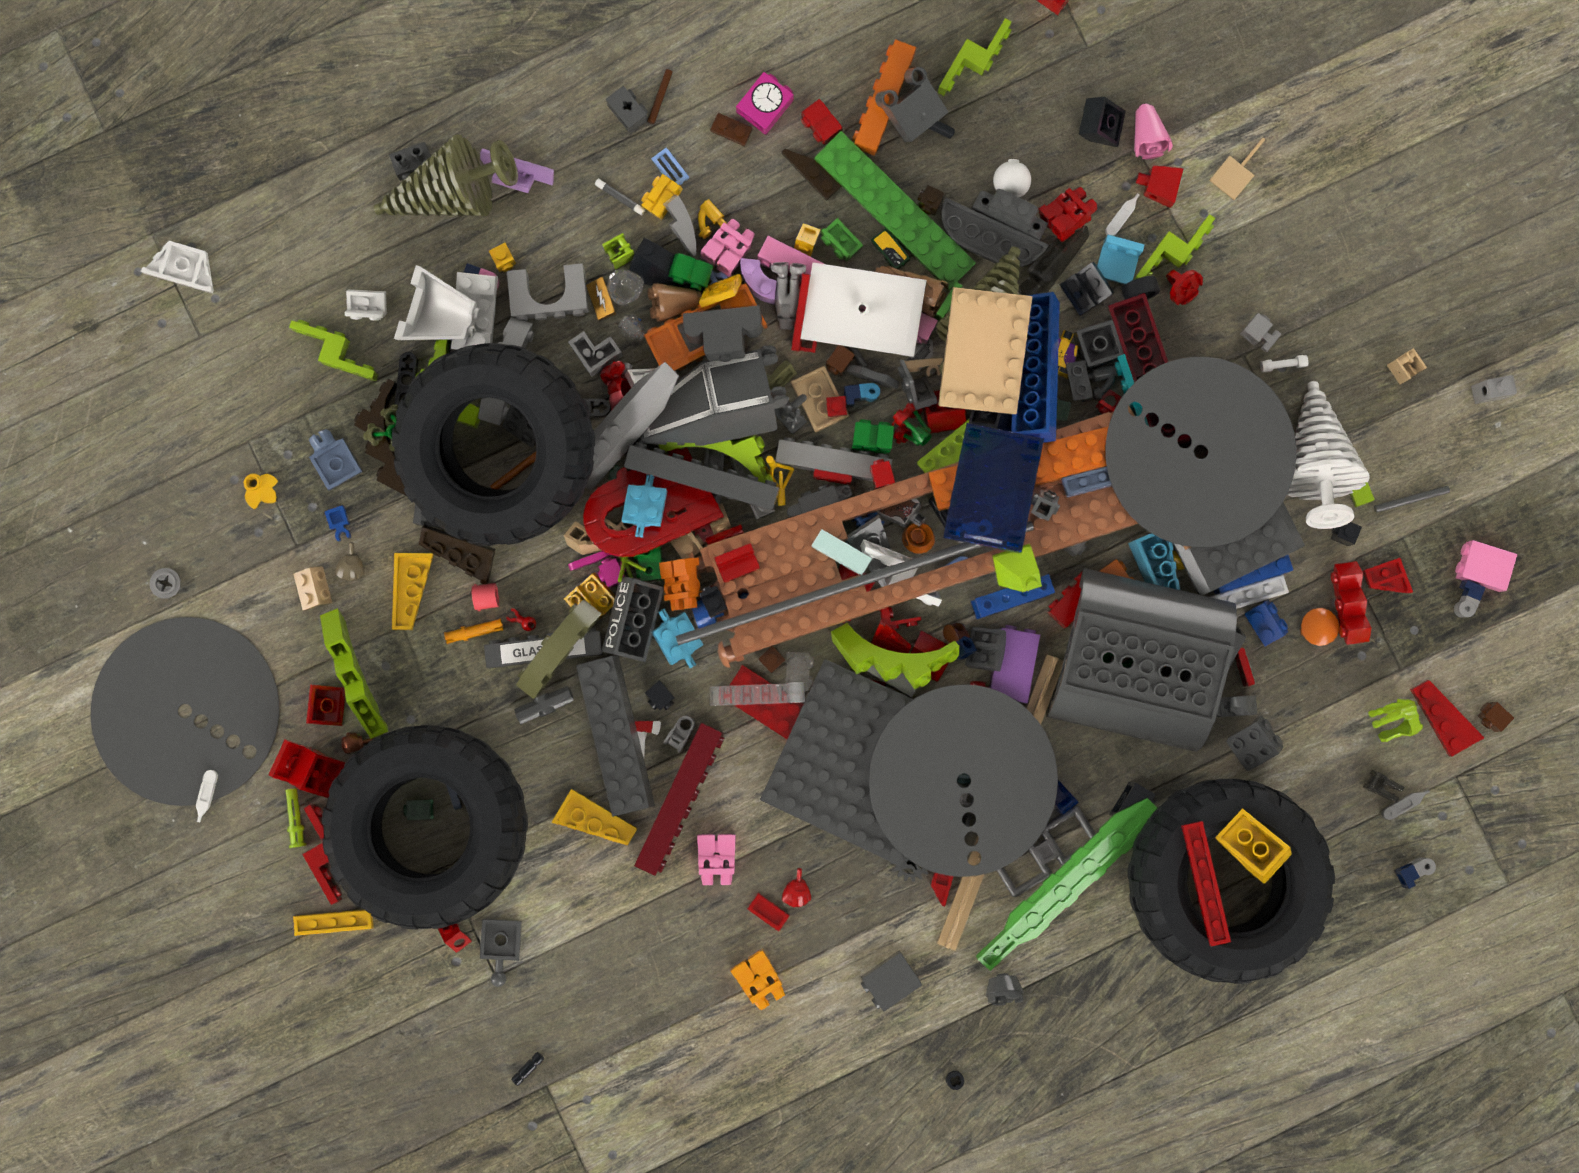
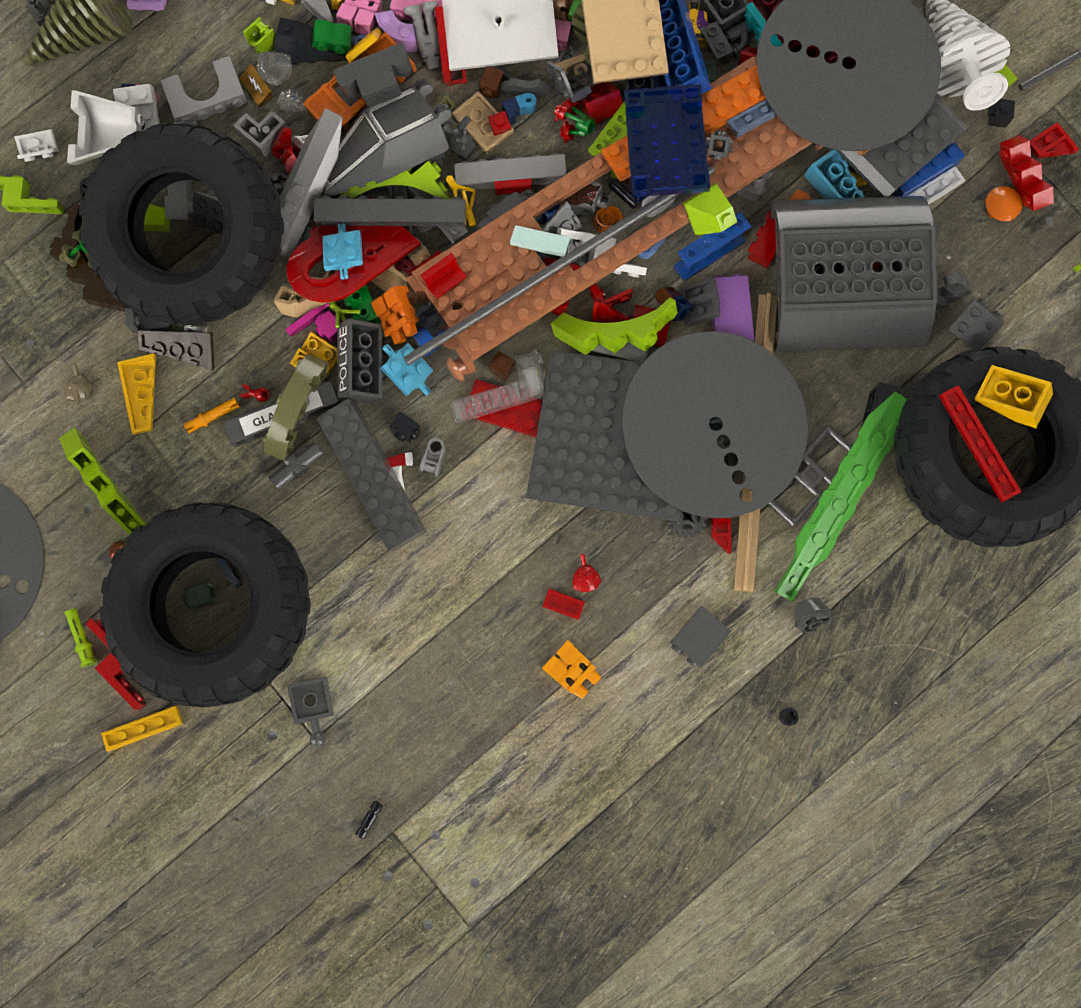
camera: 10 degrees left, 5 degrees down
(305, 768) = (74, 584): red bracket -> none
(312, 587) = (46, 415): tan bracket -> none
(325, 705) = (84, 521): red slope -> none
(333, 459) = (38, 292): sand blue plate -> none
(338, 519) = (56, 348): blue plate -> none
(451, 934) = (259, 705): red bracket -> none
(485, 596) = (214, 379): coral piece -> none
(502, 258) = (154, 73): yellow bracket -> none
(589, 817) = (368, 560): yellow wing -> none
(671, 301) = (319, 68): medium nougat cone -> none
(678, 799) = (448, 516): dark red brick -> none
(718, 863) = (505, 552): bright pink hips -> none
(872, 437) = (540, 138): green brick -> none
(881, 473) = (557, 165): red brick -> none
(1064, 799) = (816, 421): clear blue slope -> none
(1244, 668) = (946, 258): red tile -> none
(1267, 622) = (953, 212): blue bracket -> none

